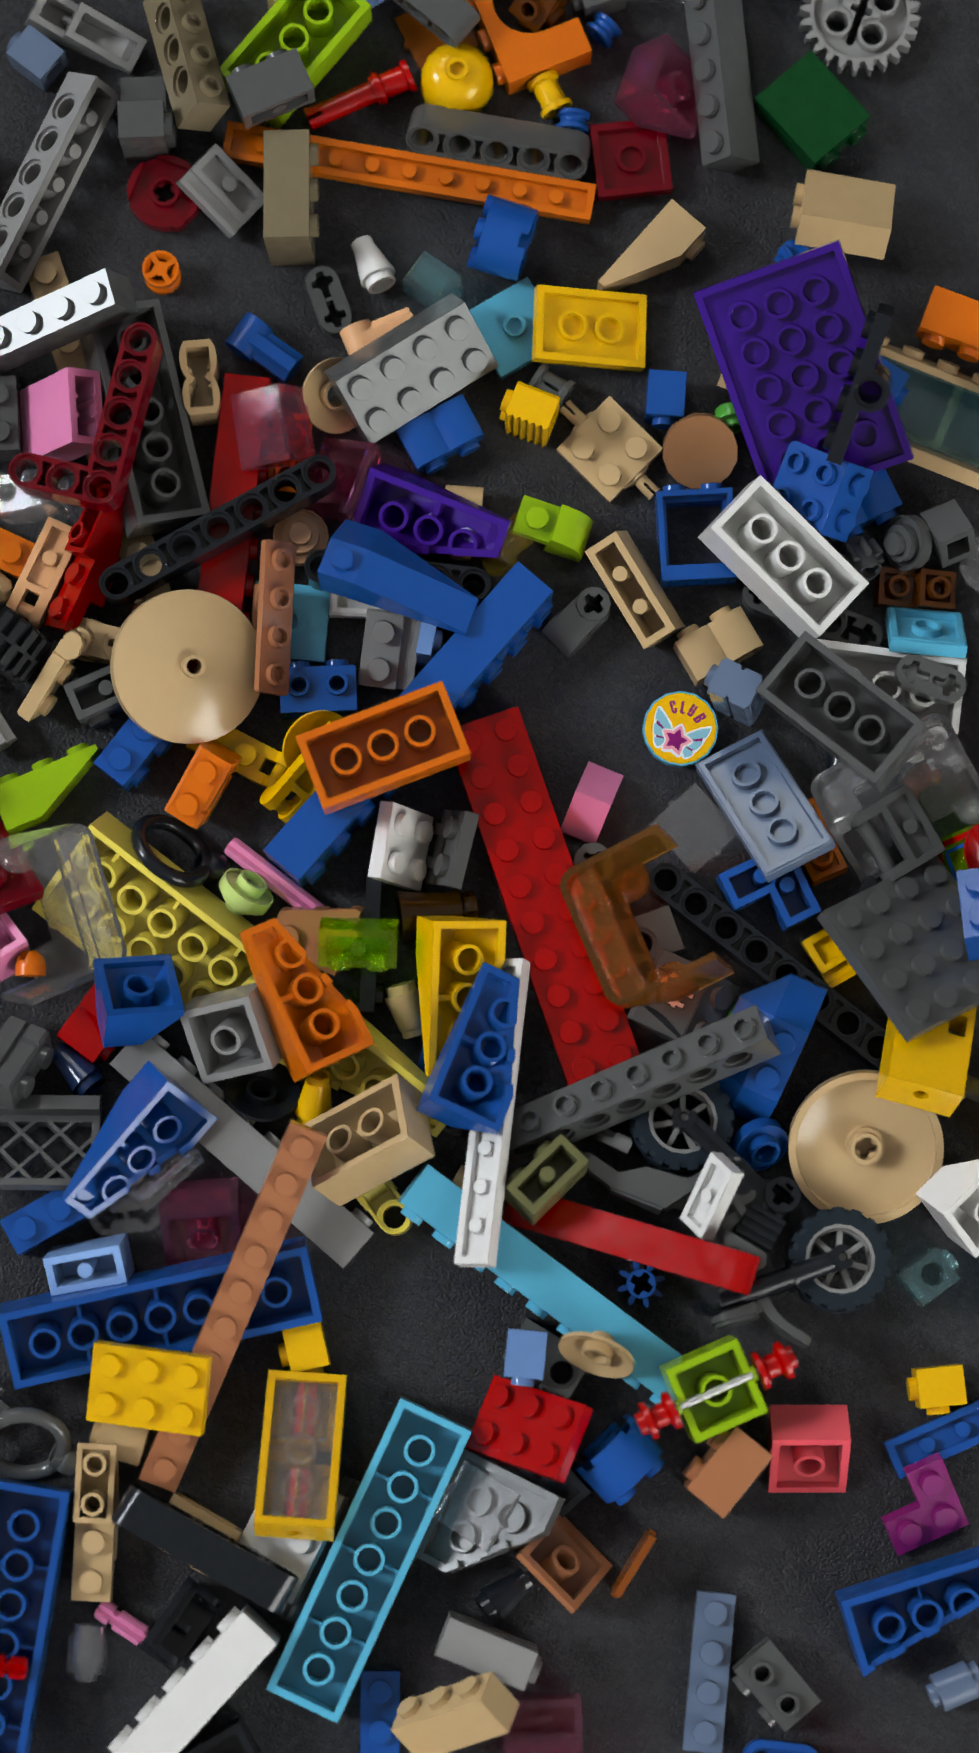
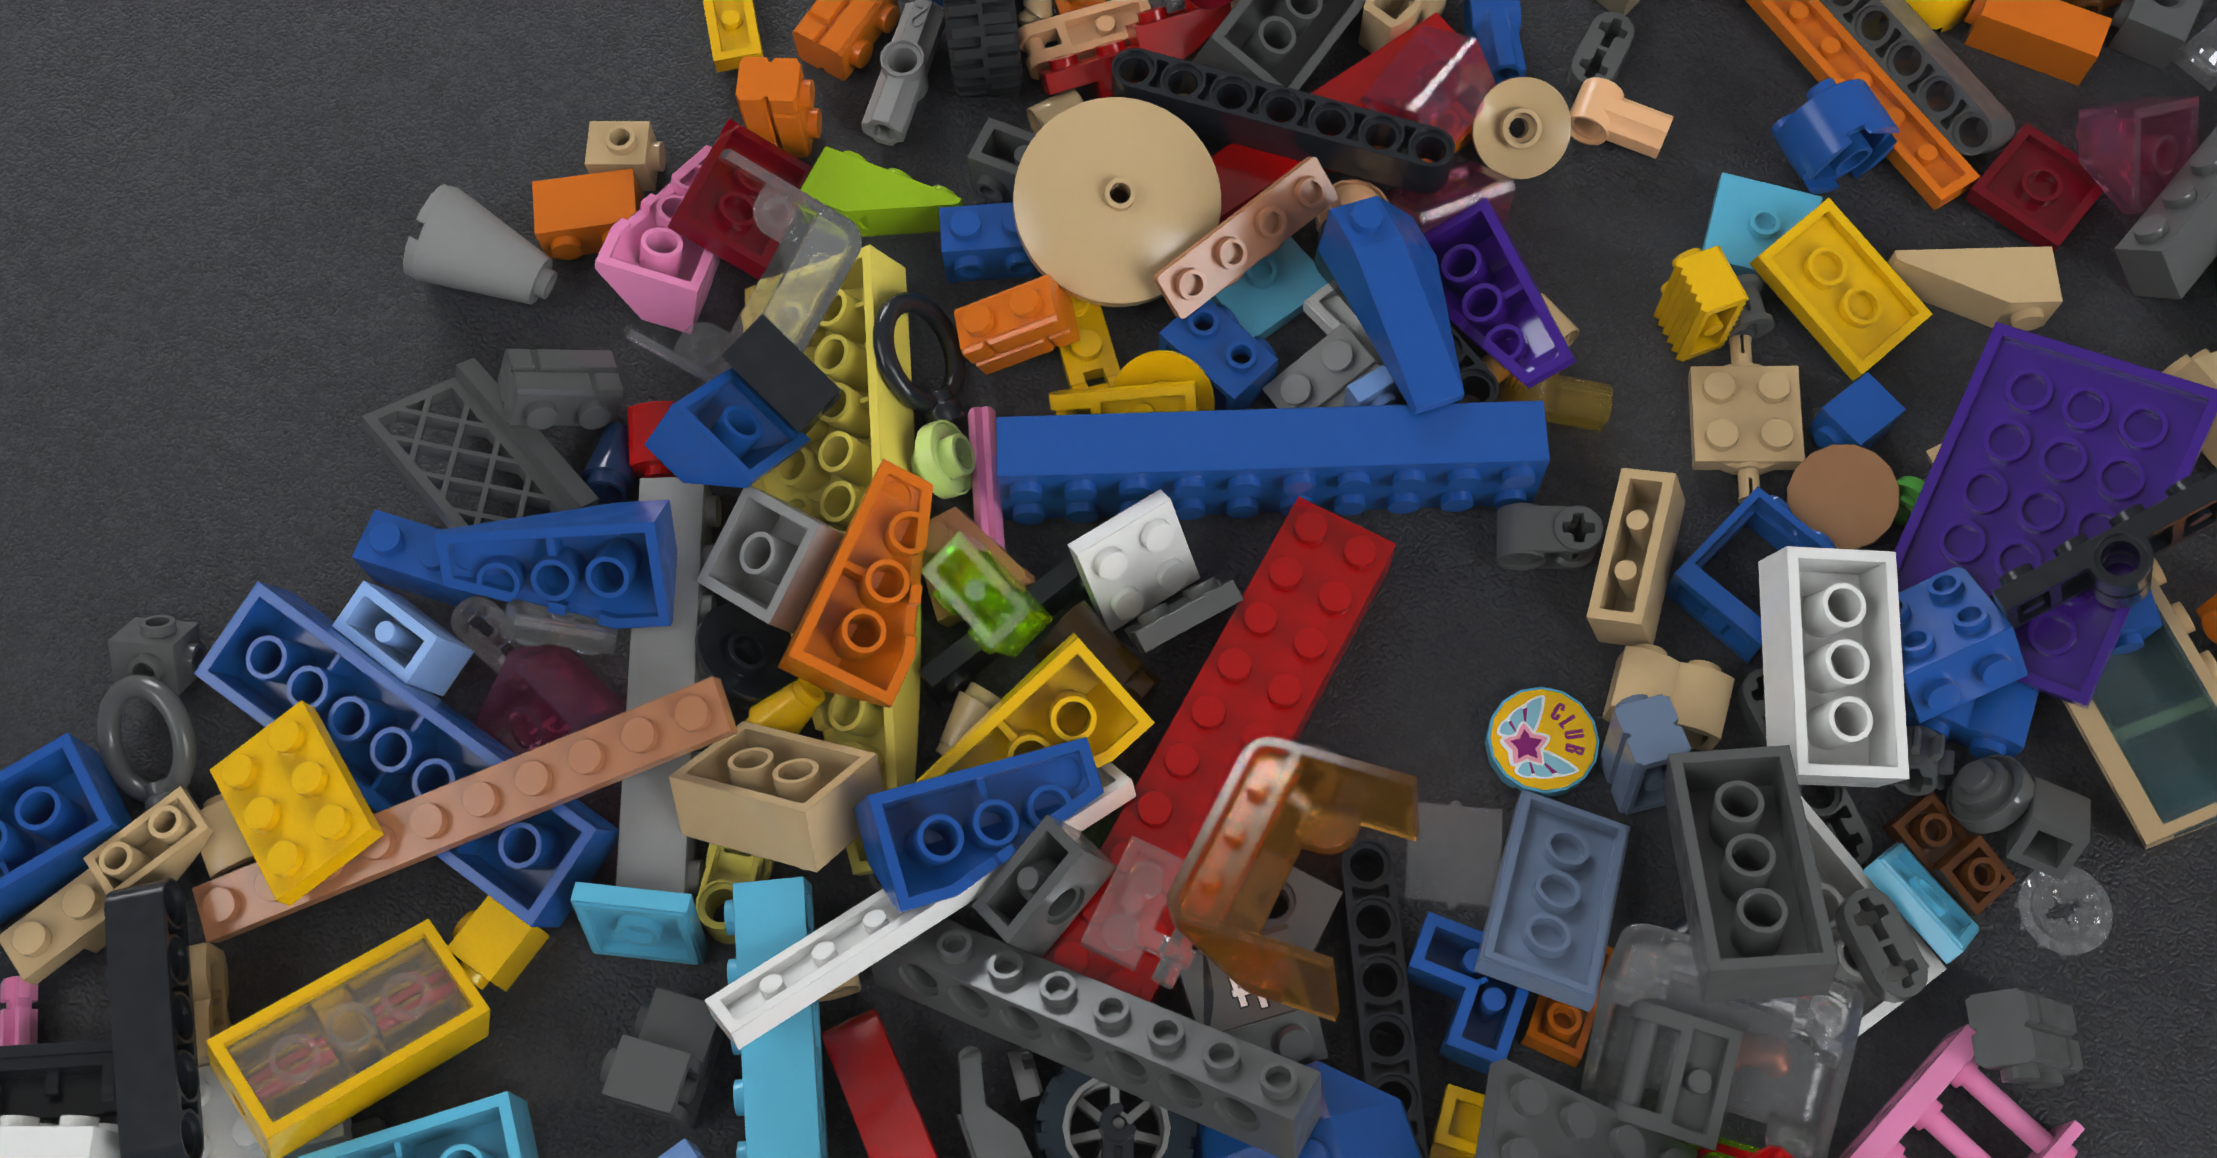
camera: 55 degrees right, 15 degrees down
(30, 964) = (677, 321): orange hinge -> none
(56, 672) = (1006, 100): tan hinge -> none
(129, 940) = (782, 374): none -> black hinge
(367, 1265) = (640, 923): none -> medium azure plate
(373, 267) = (1675, 62): white cone -> none
(383, 747) = (1213, 425): orange brick -> none
(411, 368) = (1623, 160): brick -> none
(431, 280) = (1719, 120): clear light blue brick -> none
(440, 434) = (1586, 249): blue brick -> none
(448, 1305) = (670, 1062): none -> dark grey brick
(540, 1050) = (1044, 886): none -> dark grey brick
(546, 1179) = (902, 1025): olive brick -> none
(549, 93) = (2009, 71): yellow bush -> none
(559, 528) = (1617, 424): lime brick -> none
(573, 118) = (2018, 103): blue bush -> none
(590, 1018) = (1131, 910): none -> clear plate
(591, 803) = (1372, 718): bright pink slope -> none
(603, 30) = (2123, 60): blue bush -> none

